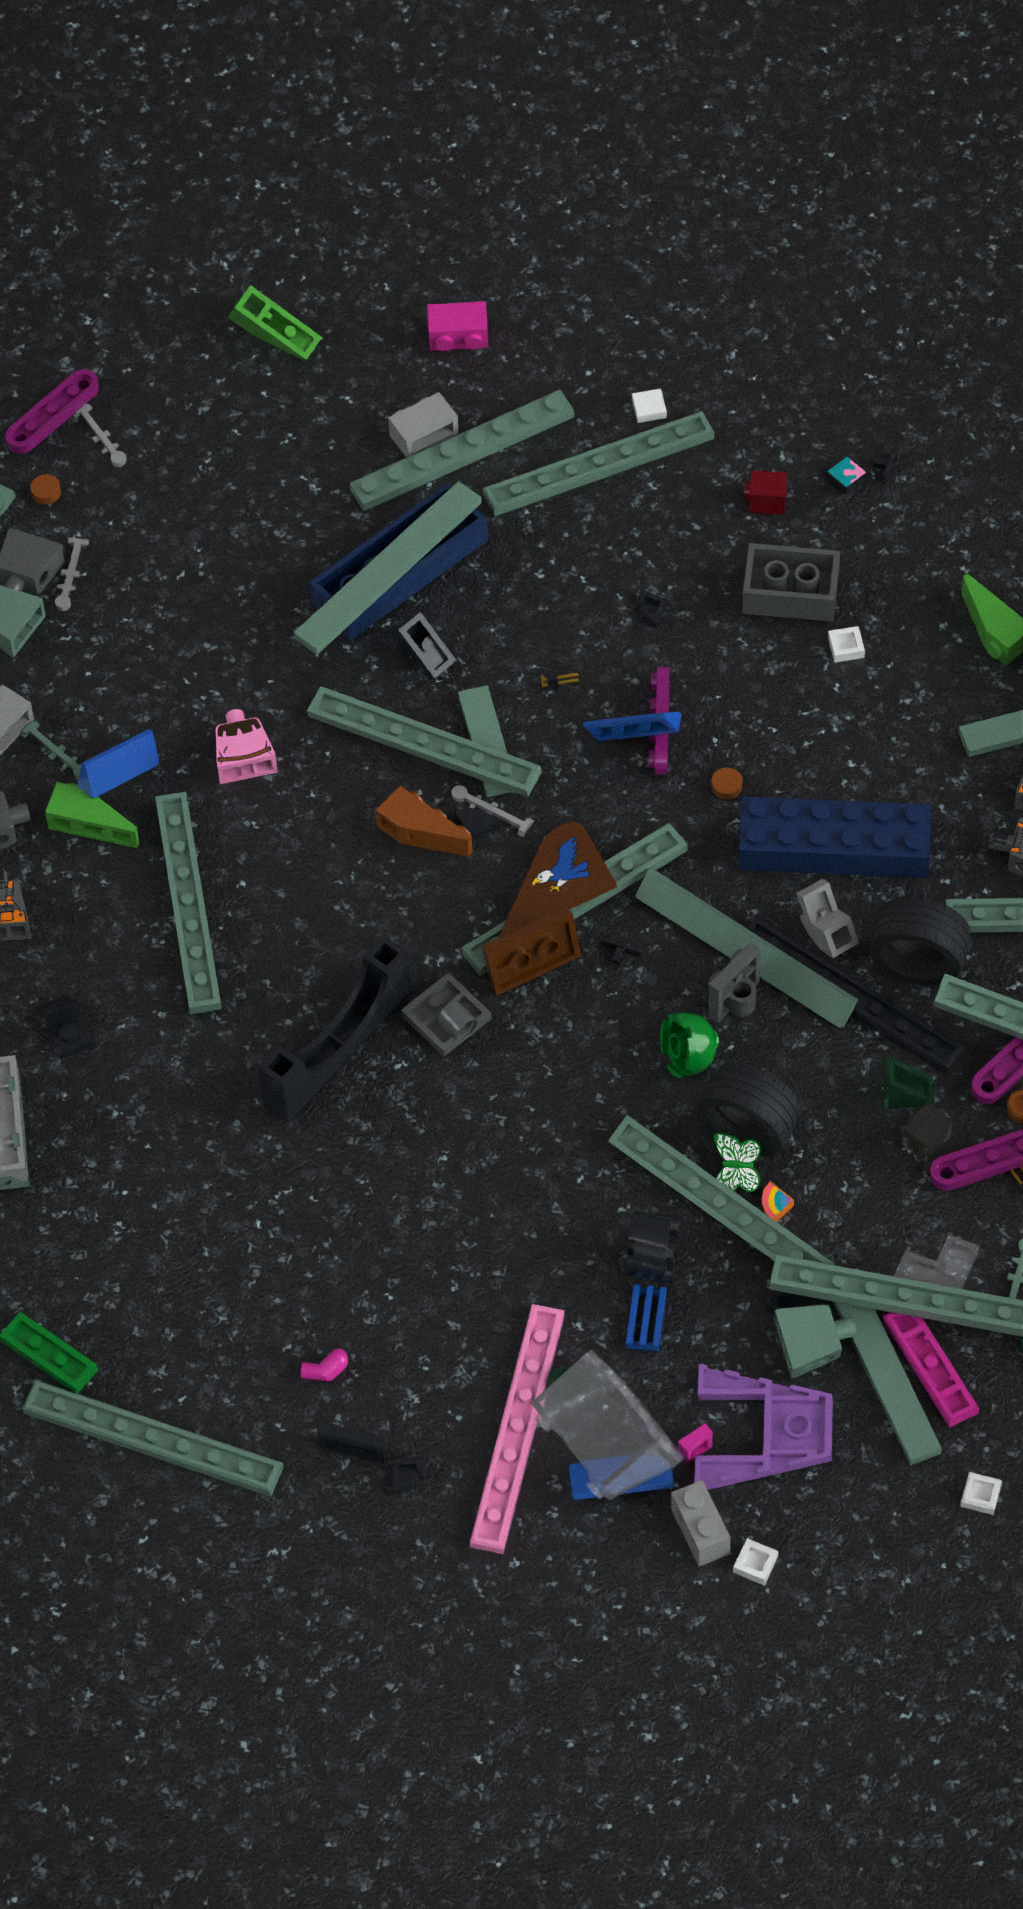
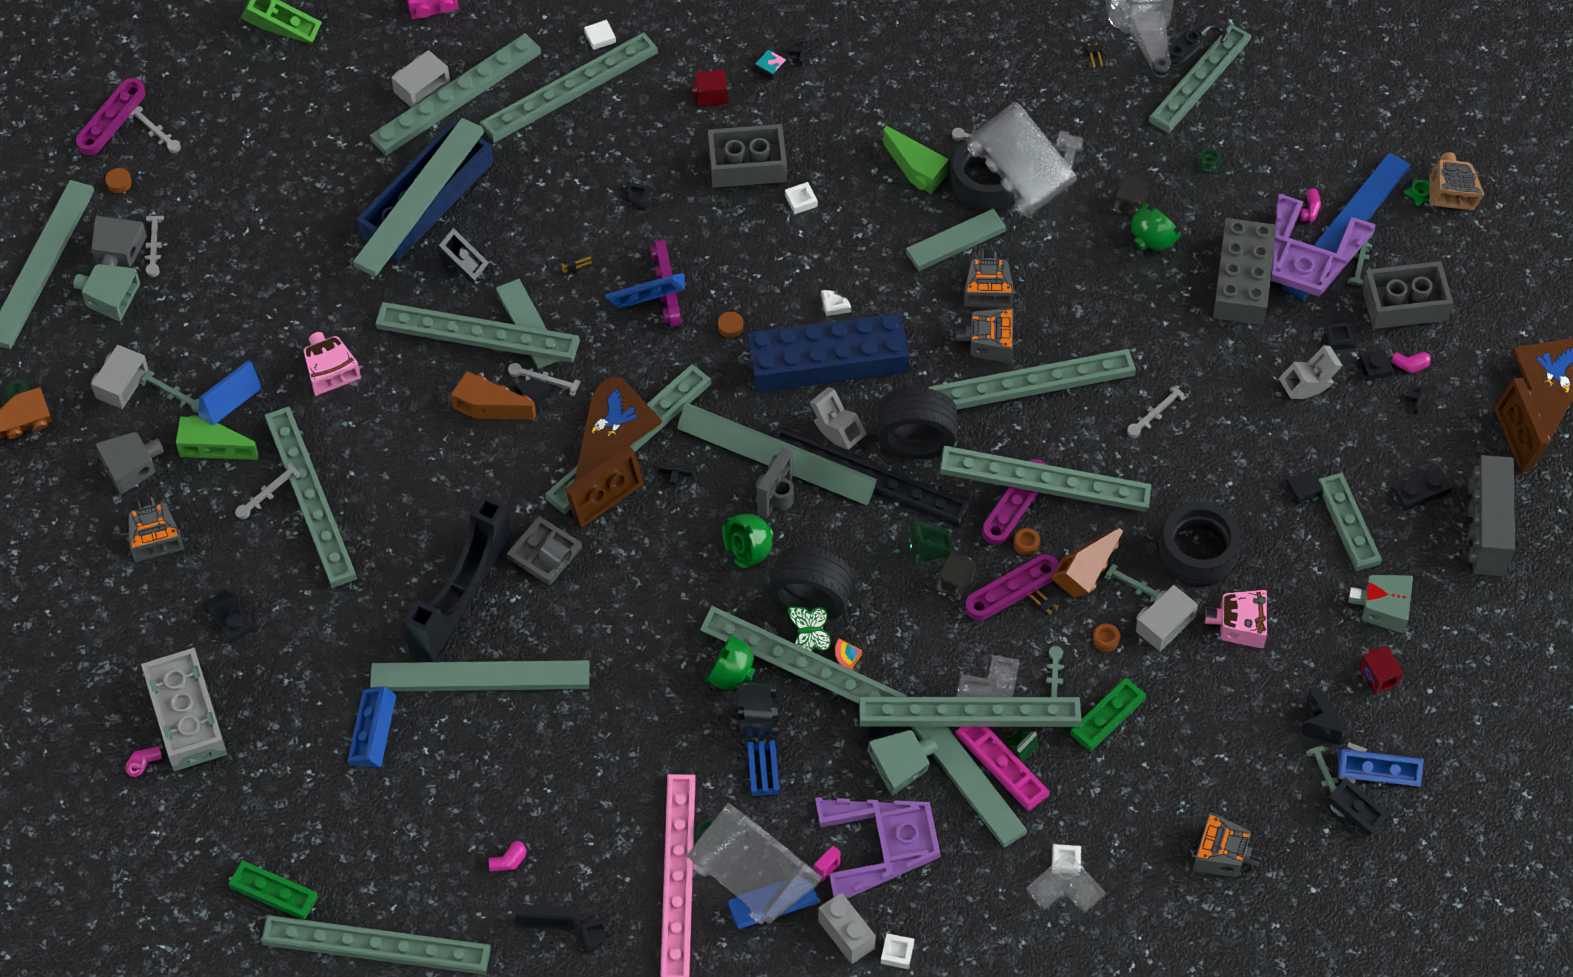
camera: 15 degrees left, 0 degrees up
(107, 905) = (243, 511): none -> light grey piece
(202, 1185) = (372, 727): none -> blue slope
(340, 1148) = (481, 675): none -> sand green tile
(635, 1190) = (732, 665): none -> green cylinder
(857, 779) = (834, 303): none -> white tile
(961, 1348) = (1023, 744): none -> dark green slope
(973, 1513) = (1068, 877): none -> clear plate

